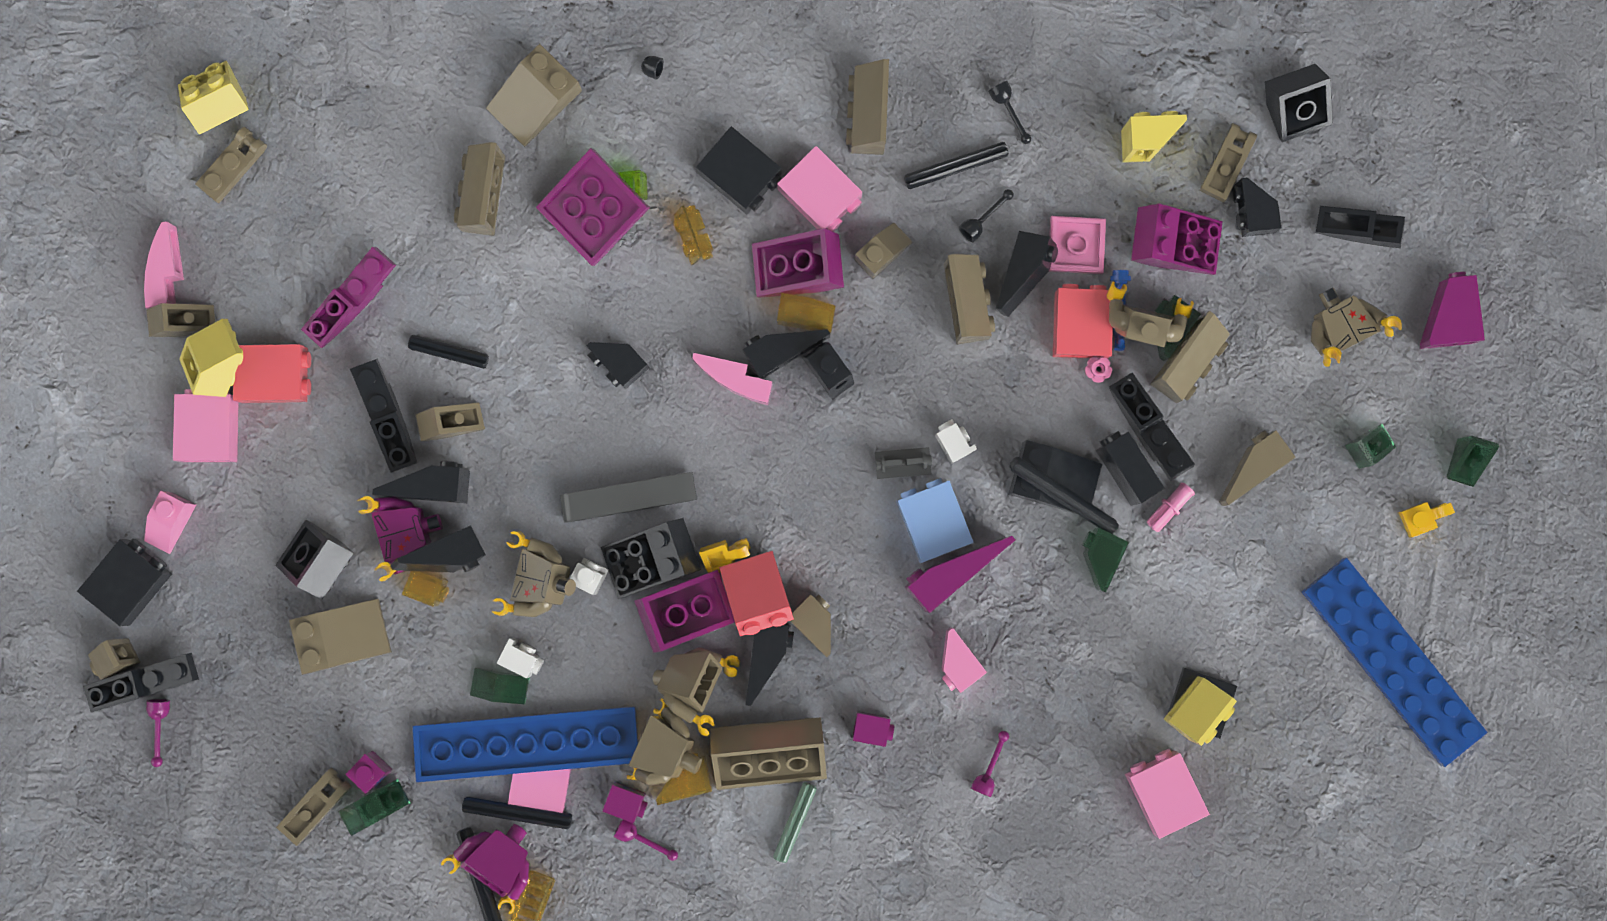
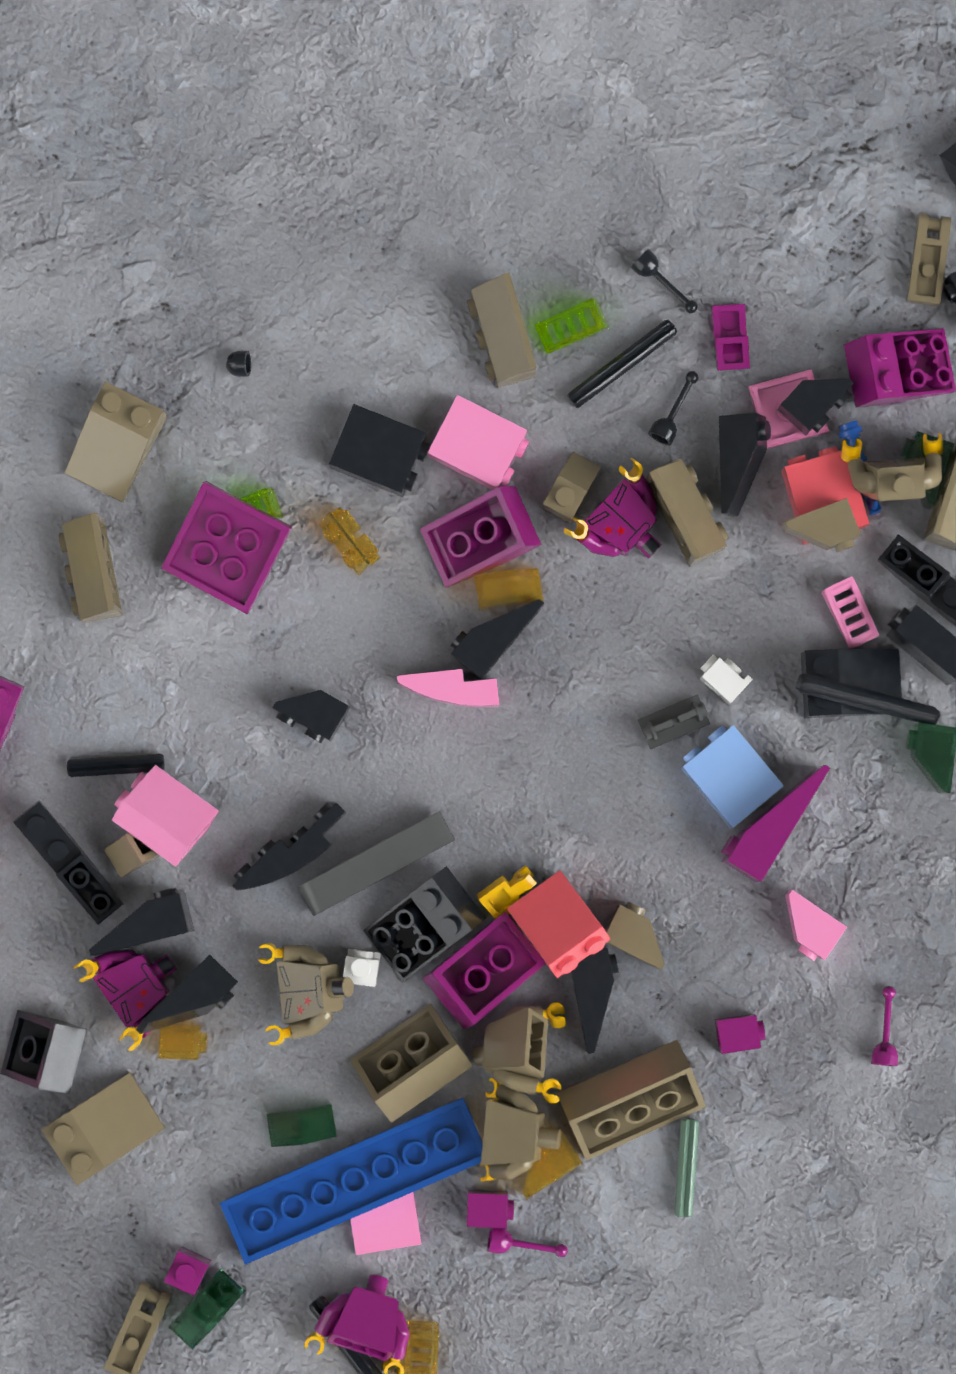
camera: 20 degrees left, 0 degrees up
(471, 402) = (164, 814): none -> bright pink brick
(516, 813) = (369, 1261): black axle -> none
(520, 658) = (316, 1086): white brick -> none
(552, 470) = (281, 861): none -> black slope
(602, 665) = (410, 1063): none -> dark tan slope
(829, 369) = (555, 643): black torso -> none
(914, 287) = (621, 519): none -> magenta torso
(937, 131) = (597, 314): none -> clear neon green slope
(1049, 172) = (730, 337): none -> magenta slope
(1076, 346) = (826, 527): none -> dark tan slope
(1082, 421) = (855, 595): none -> bright pink slope
(1093, 374) = (868, 544): bright pink plate -> none
(1098, 243) = (812, 400): none -> black slope
(1147, 134) = (827, 262): light yellow slope -> none

